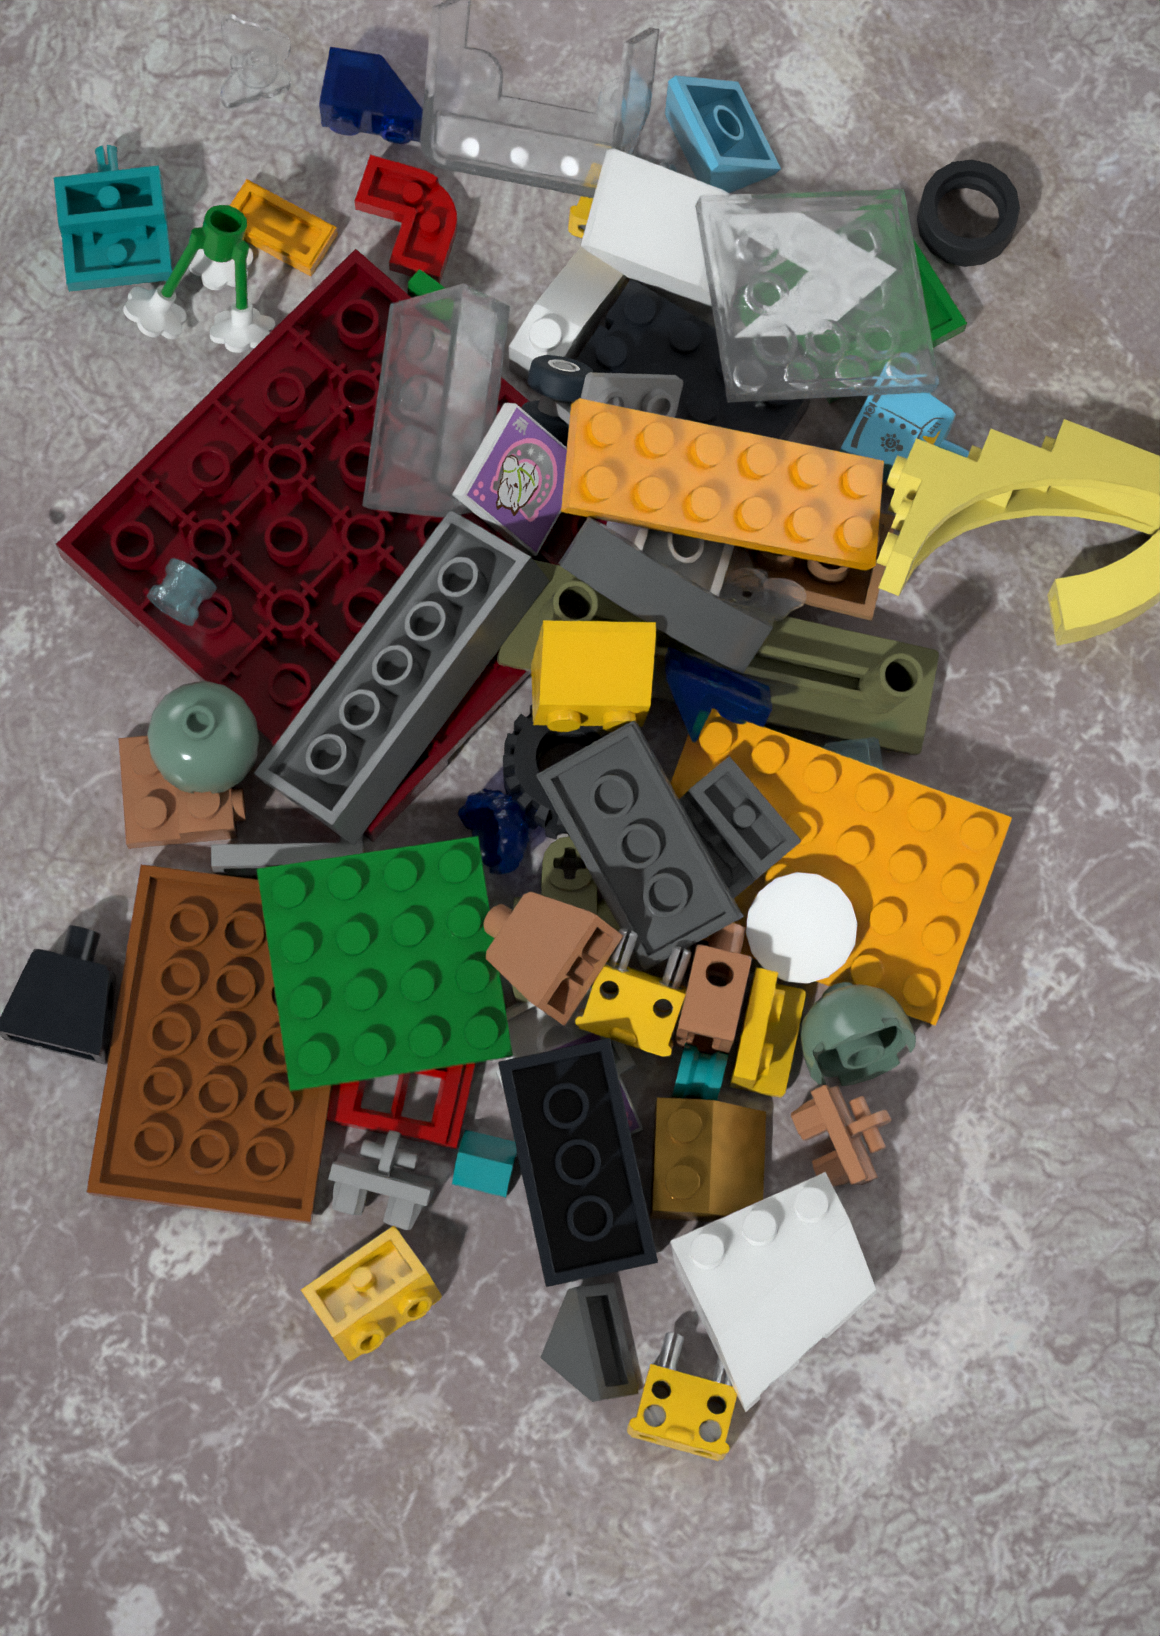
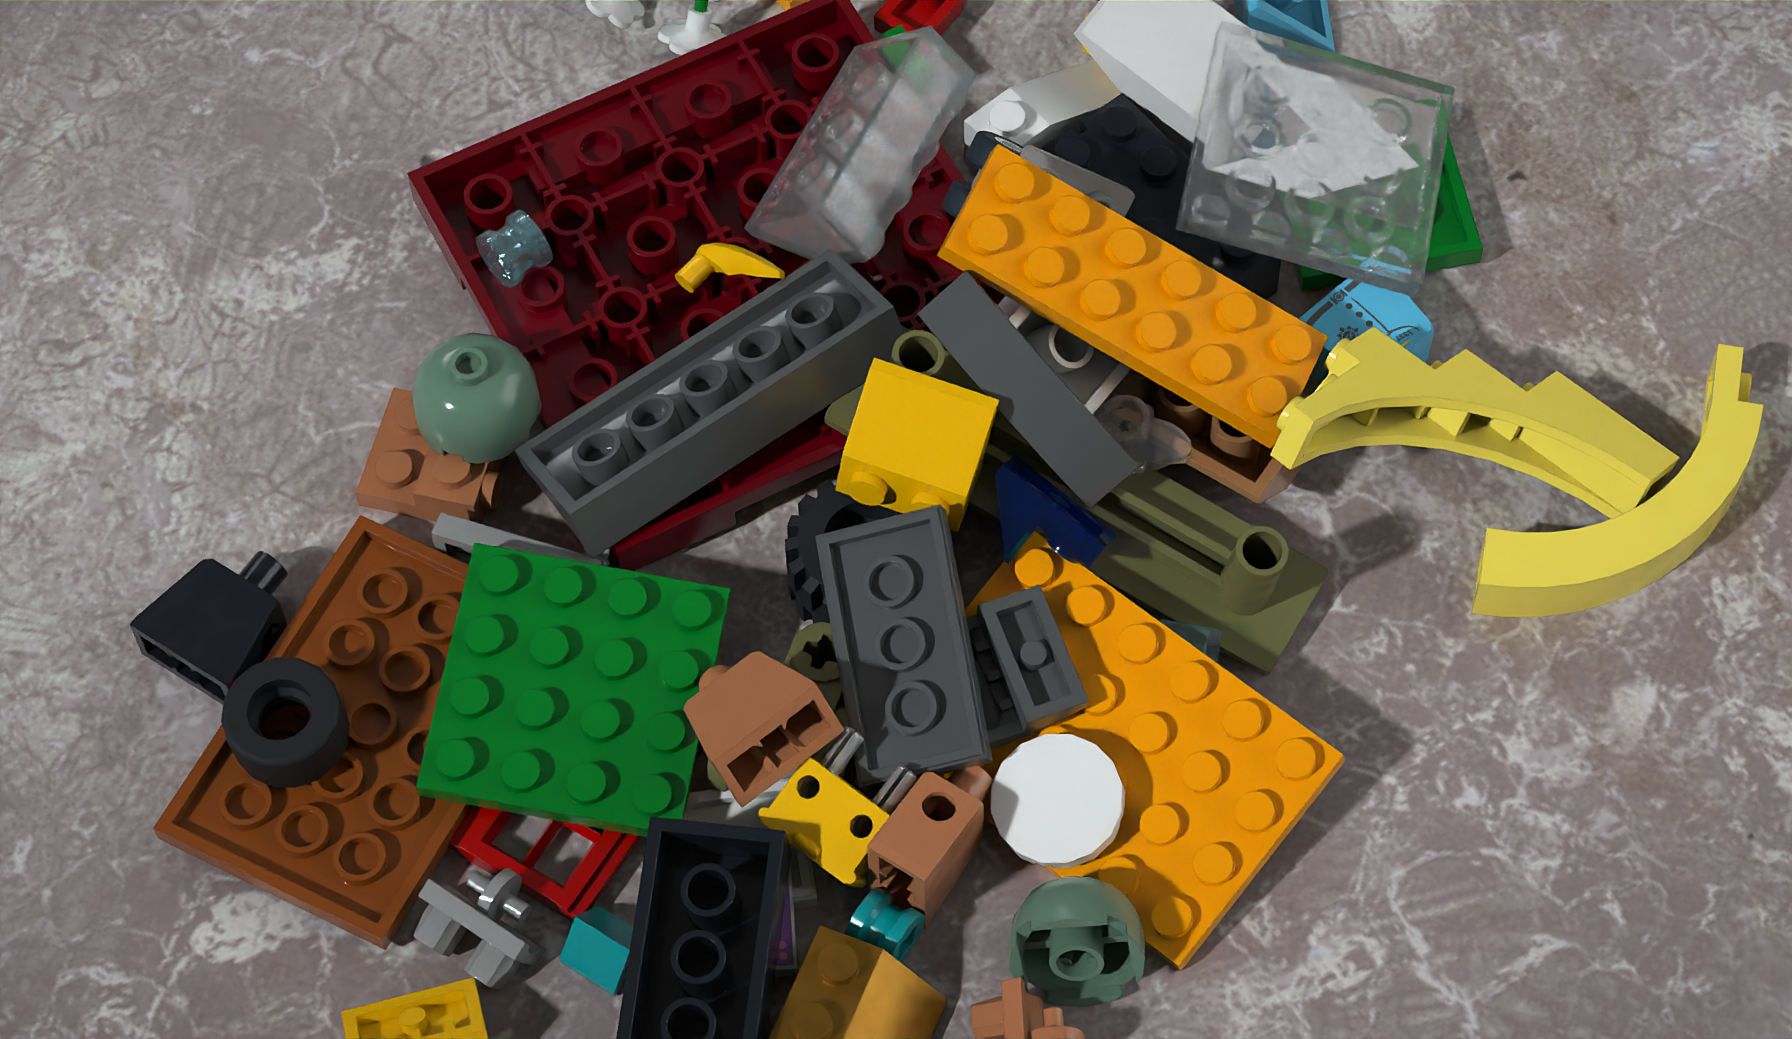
camera: 25 degrees right, 15 degrees down
(139, 1044) = (272, 687): none -> black tyre
(366, 544) = (727, 260): none -> yellow bar
(499, 828) = (761, 595): clear blue hair -> none
(516, 479) = (901, 234): tile -> none
(768, 1035) = (974, 909): yellow bracket -> none
(978, 177) = (1530, 108): black tyre -> none

